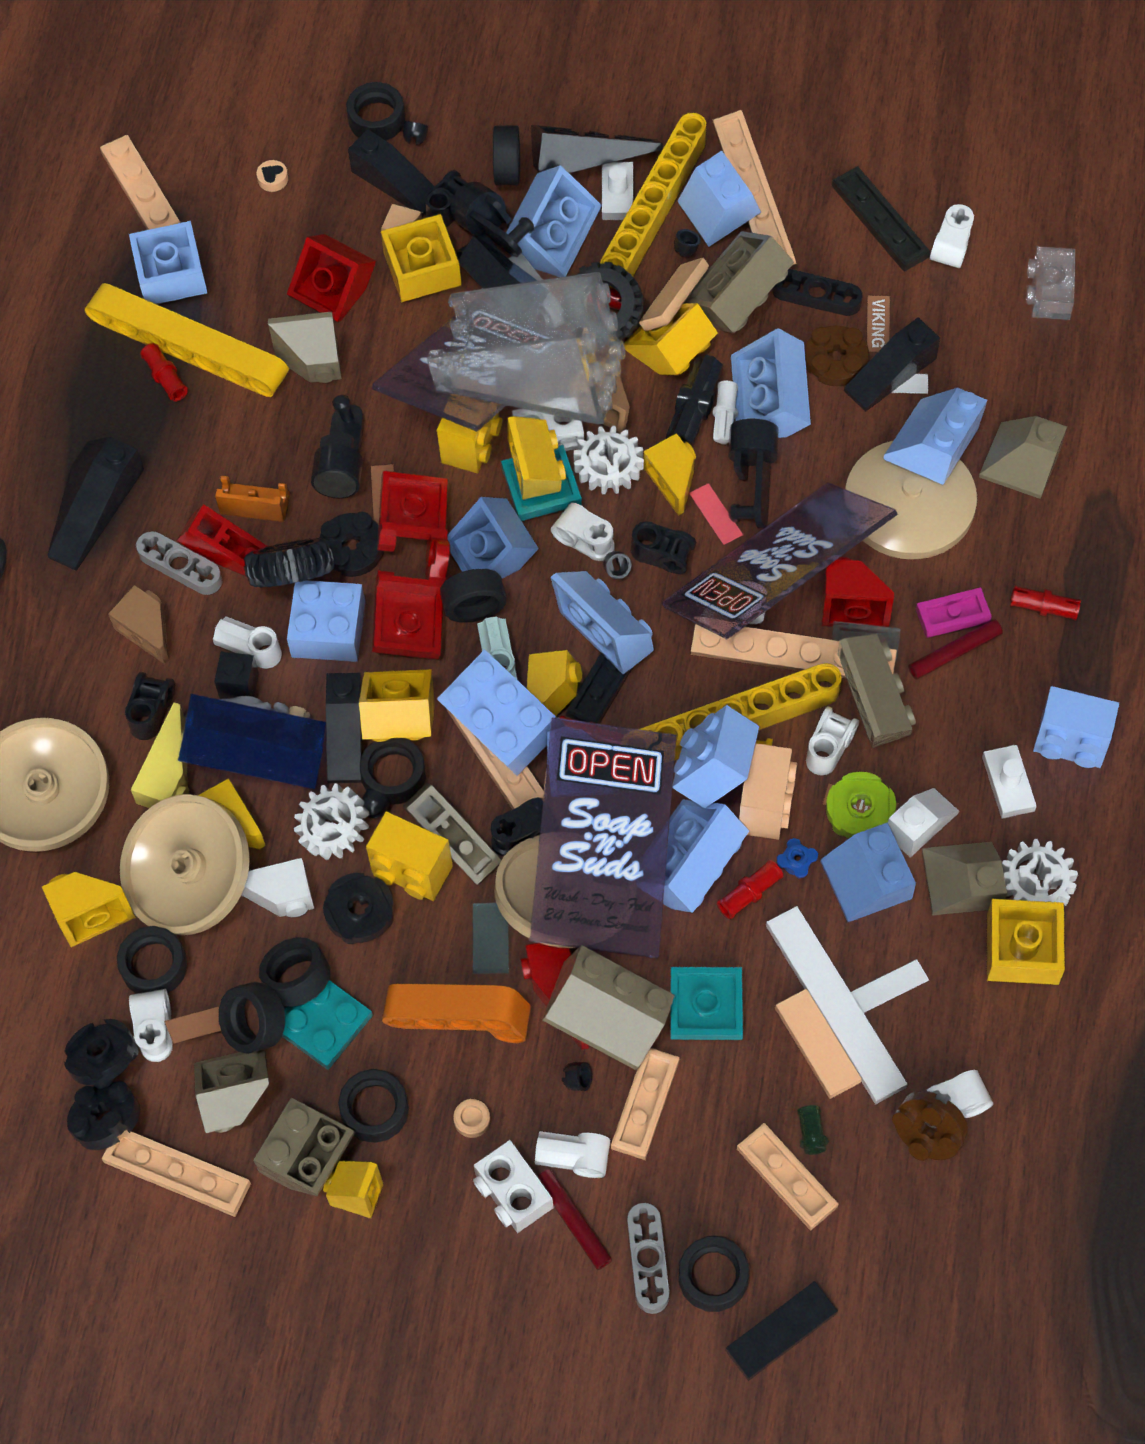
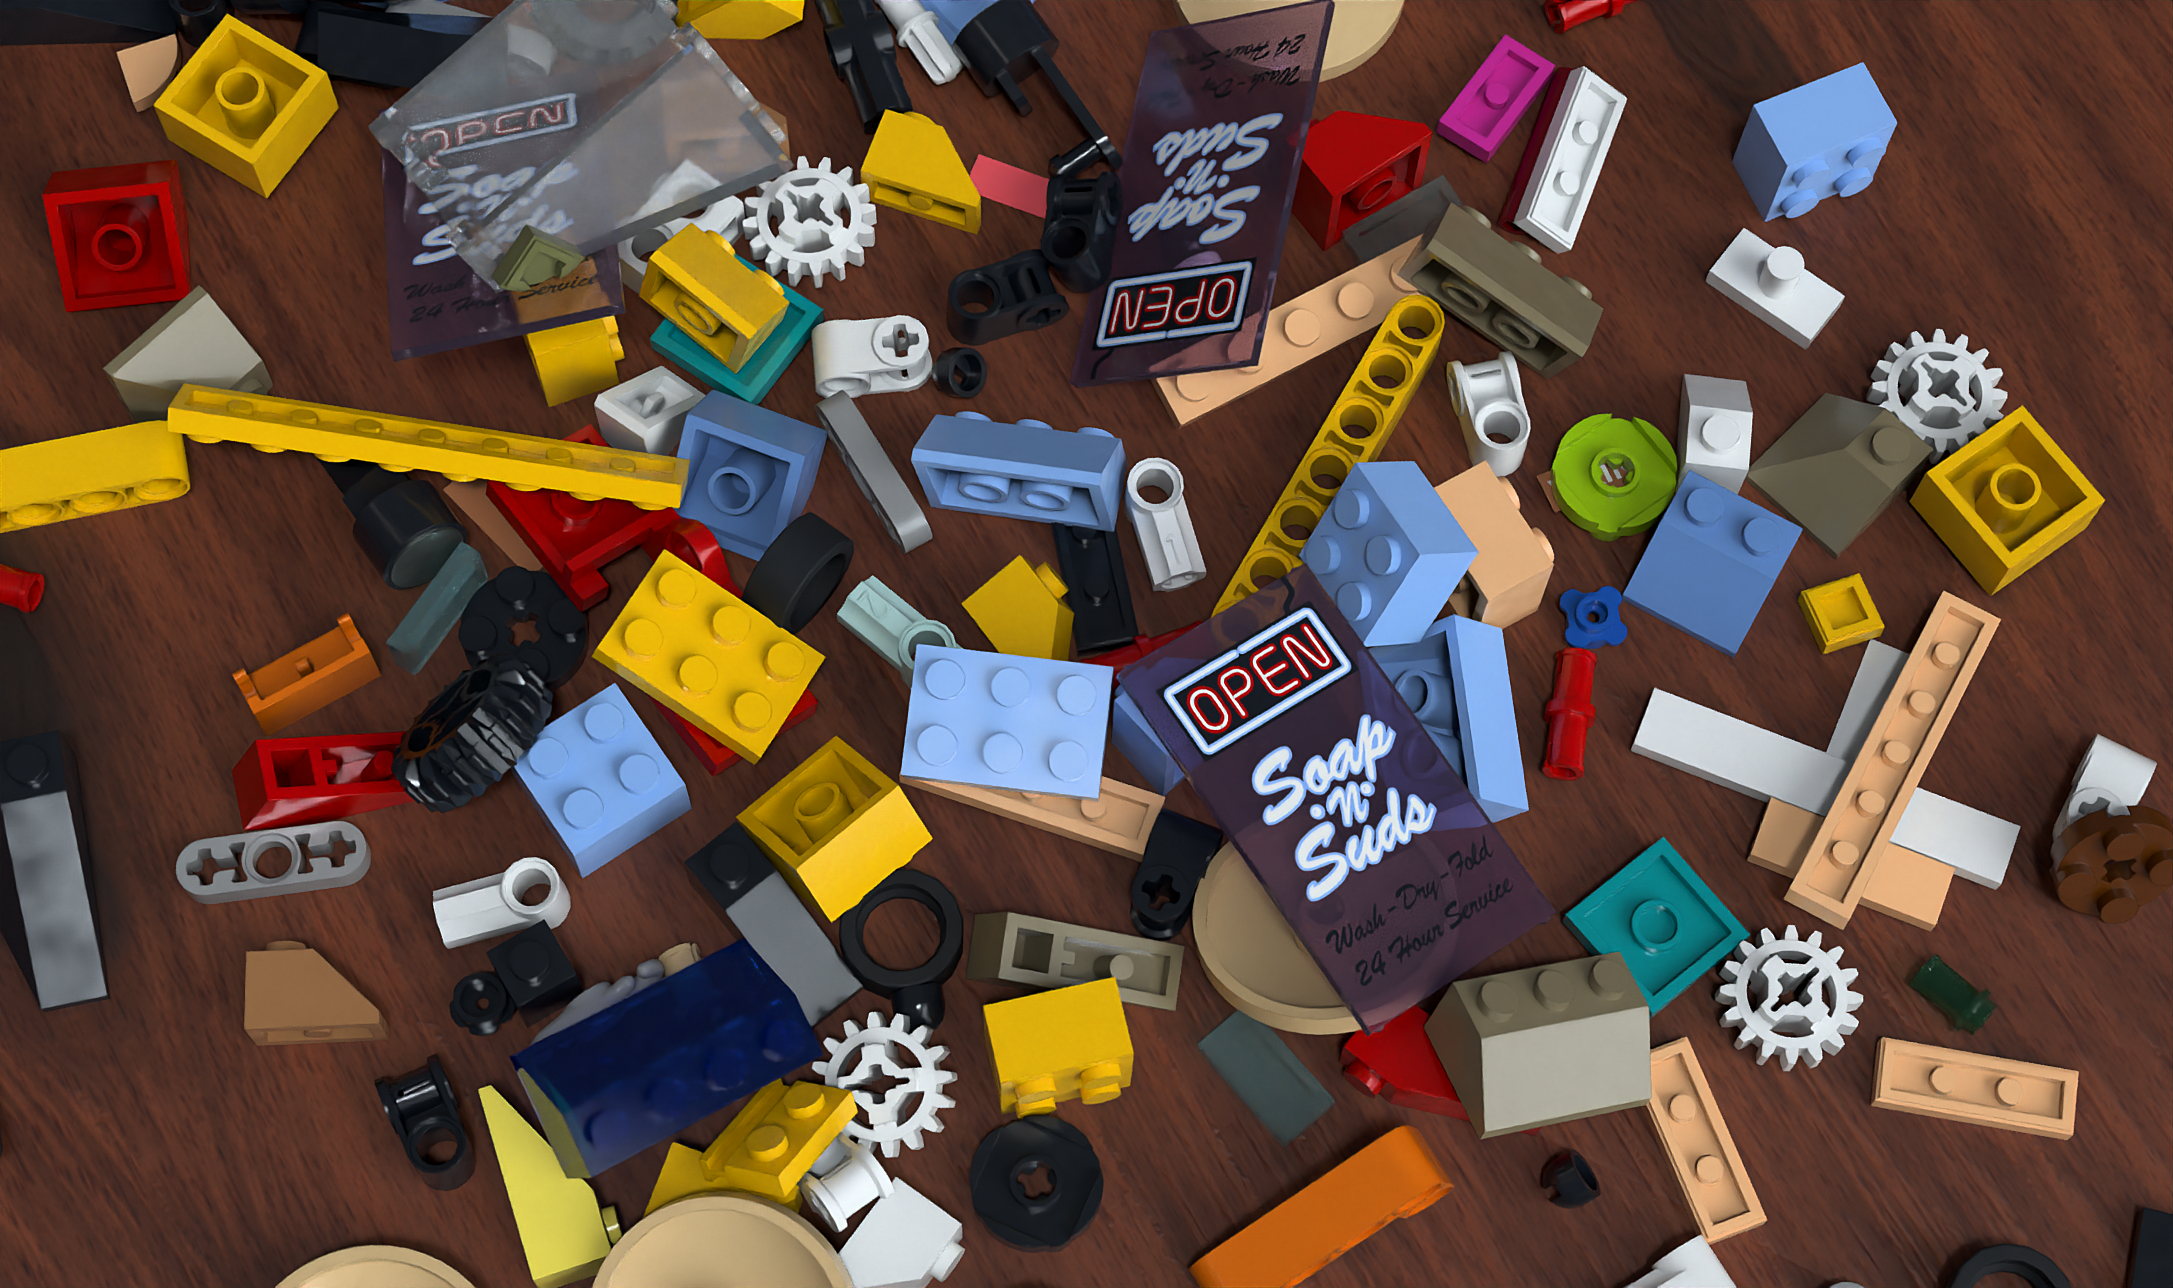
camera: 45 degrees left, 5 degrees up
(205, 667) = (465, 998): none -> black plate
(268, 805) = (778, 1136): none -> yellow plate
(276, 837) = (844, 1182): none -> white piece
(323, 508) = (437, 609): none -> clear light blue tile
(370, 439) = (416, 443): none -> yellow plate
(406, 600) = (708, 657): none -> yellow plate
(460, 386) = (535, 259): none -> olive tile
(470, 485) = (646, 412): none -> white slope
(543, 585) = (873, 472): none -> light grey beam
(643, 686) = (1163, 528): none -> white piece
(717, 540) = (1084, 219): none -> black piece
(750, 1072) = (1804, 1017): none -> white gear
(871, 1010) = (1892, 761): none -> light nougat plate
(911, 938) = (1841, 613): none -> yellow tile
(963, 661) = (1570, 160): none -> white tile

